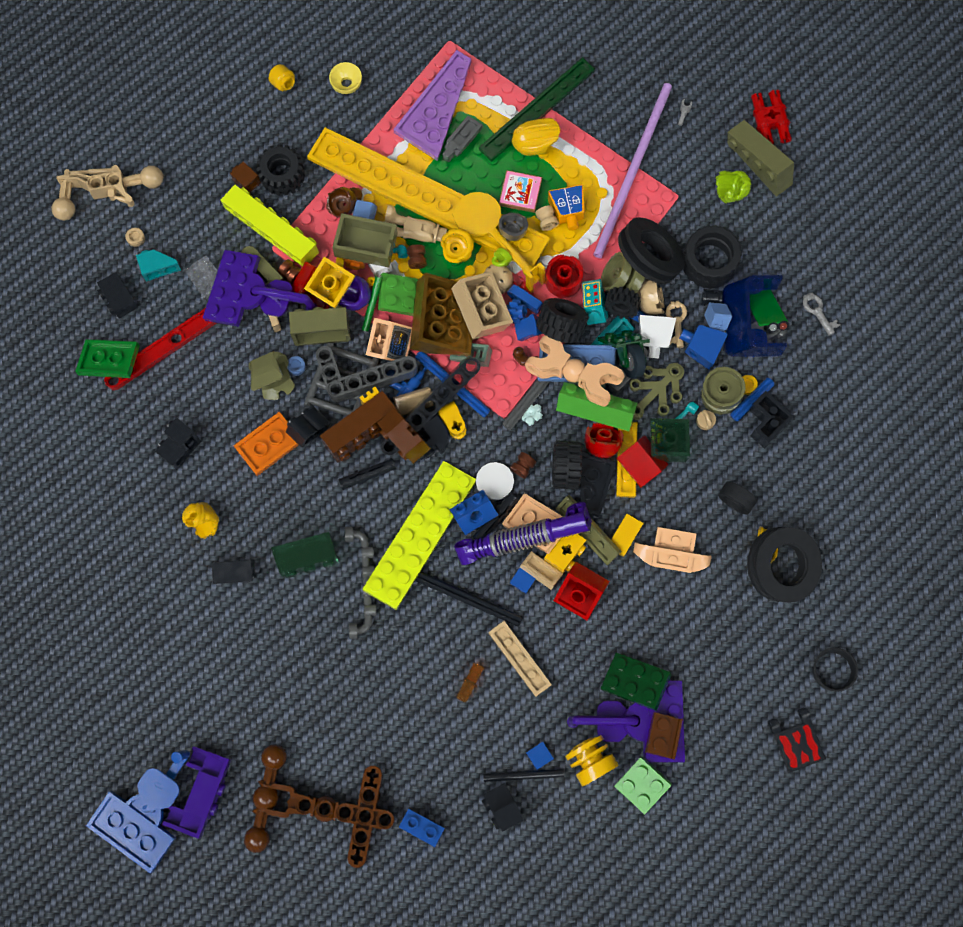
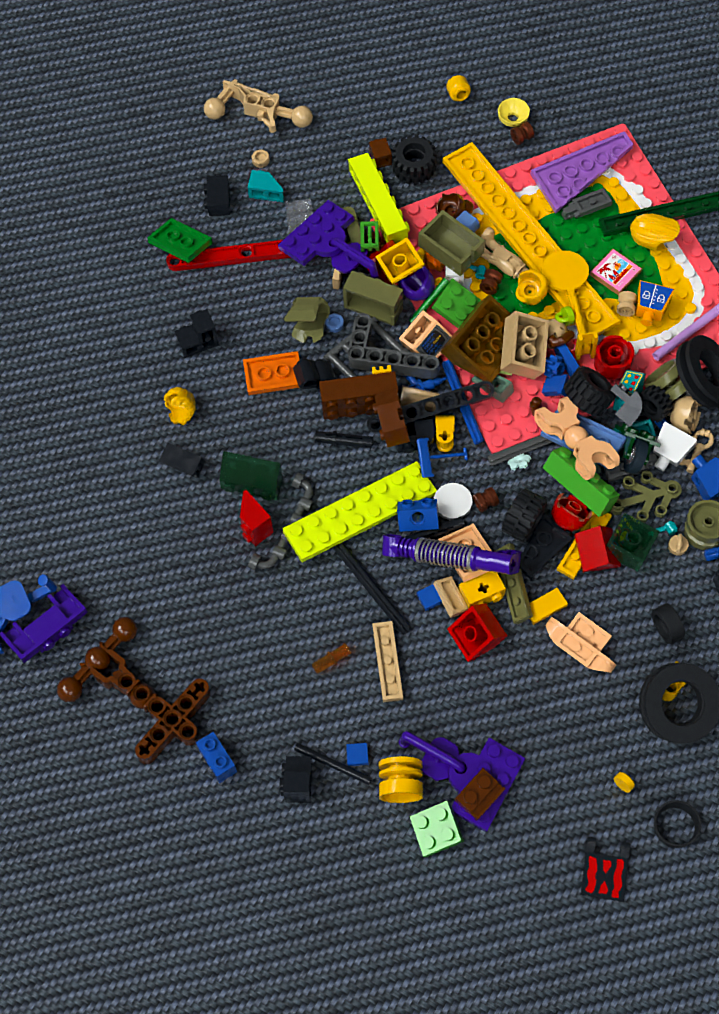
camera: 30 degrees right, 10 degrees down
(290, 278) = (369, 245): none -> bright green tile
(332, 594) = (254, 520): none -> red slope
(364, 95) = (521, 133): none -> copper wheel
(451, 456) = (424, 457): none -> blue piece
(511, 230) = (588, 297): flat silver helmet -> none
(512, 282) = (563, 339): none -> reddish brown arm
(606, 316) = (632, 404): none -> brick
(636, 681) = (481, 734): dark green plate -> none
(773, 656) = (624, 782): none -> yellow tile

